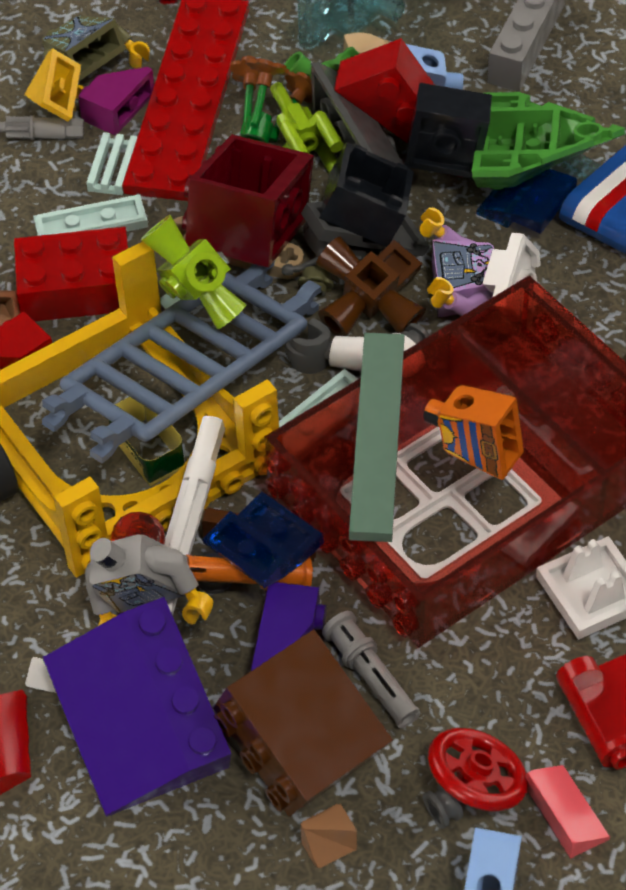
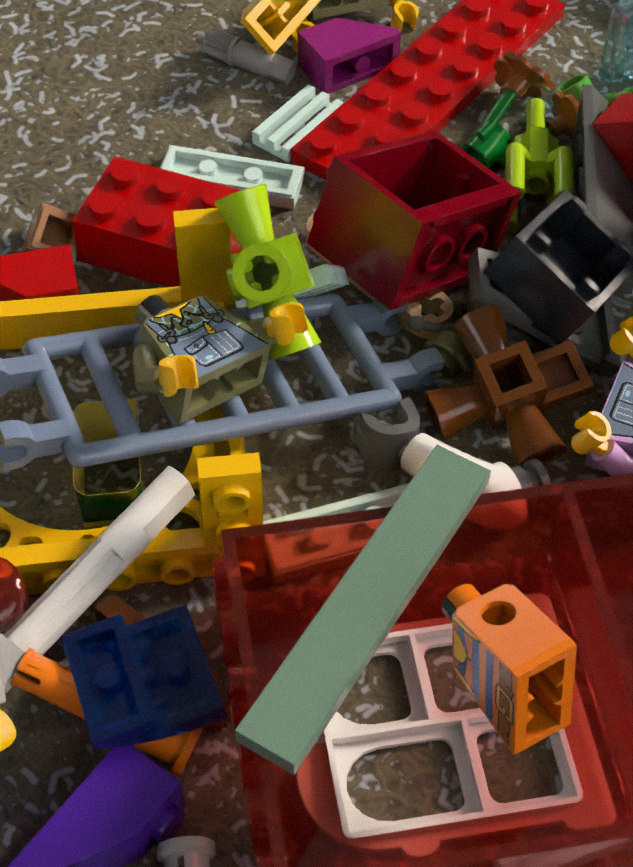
camera: 25 degrees right, 0 degrees up
(182, 340) = (205, 354): none -> torso

